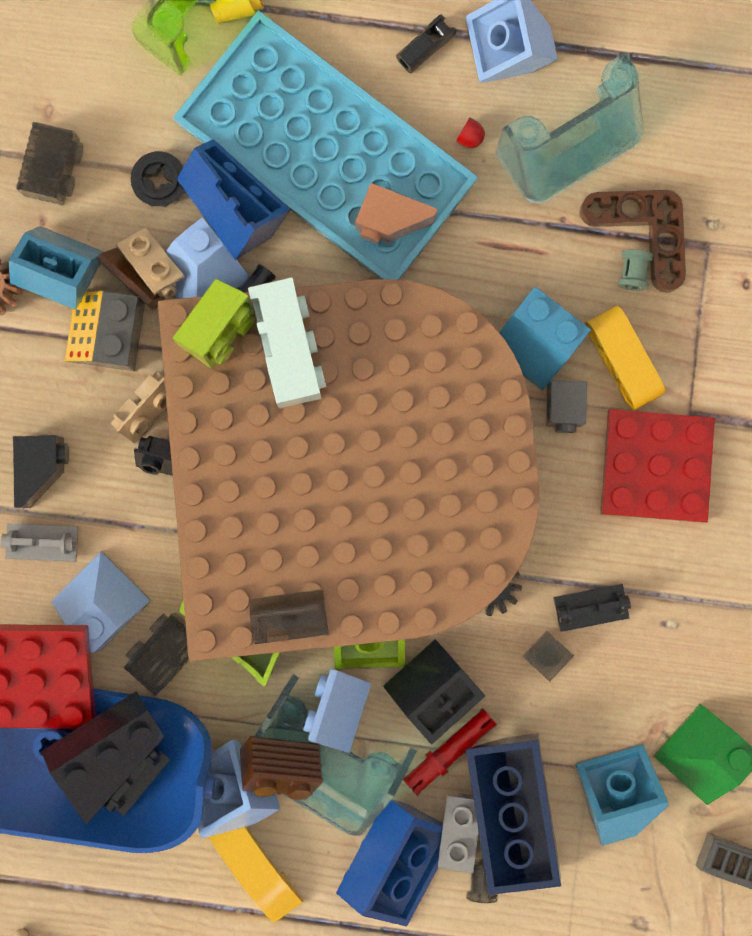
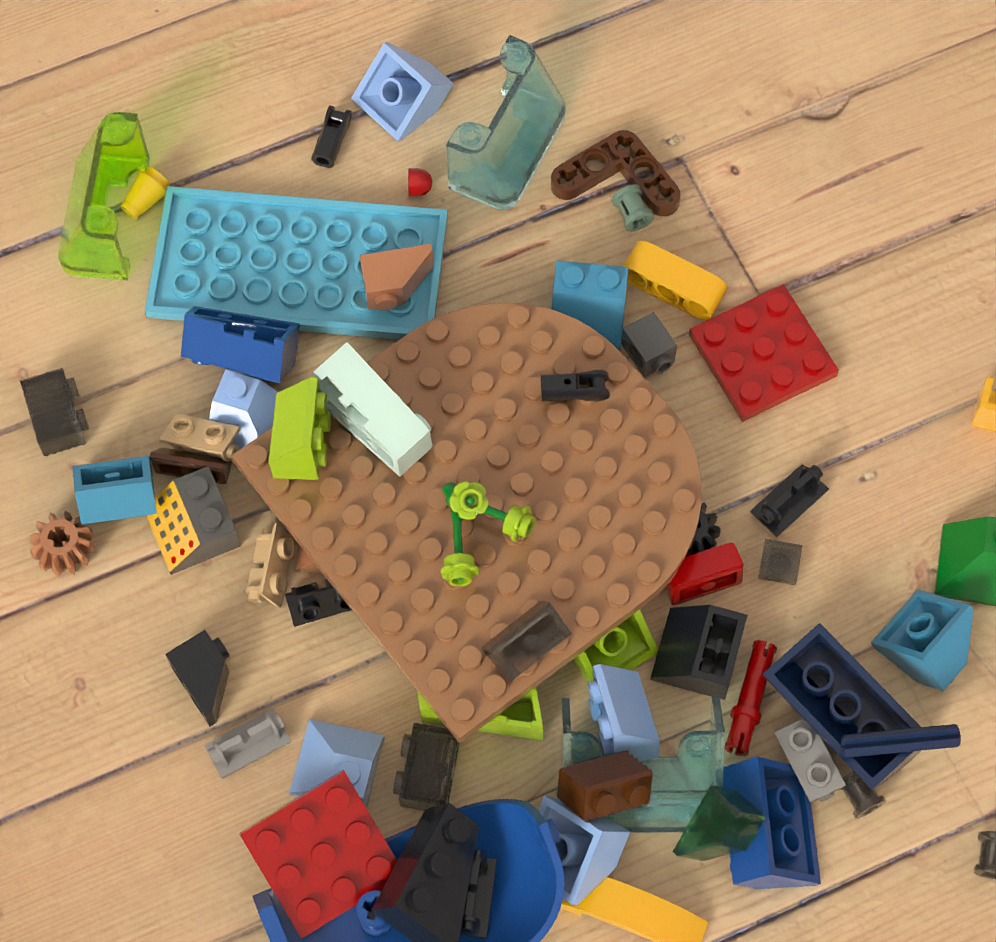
camera: 30 degrees left, 20 degrees down
(151, 165) = (147, 365): black gear -> none
(304, 485) = (465, 503): none -> lime plant
(353, 849) = (720, 826): none -> clear green slope
(462, 418) = (566, 386): none -> black bar
(486, 631) = (706, 573): none -> red slope
(534, 878) = (900, 740): none -> dark blue axle

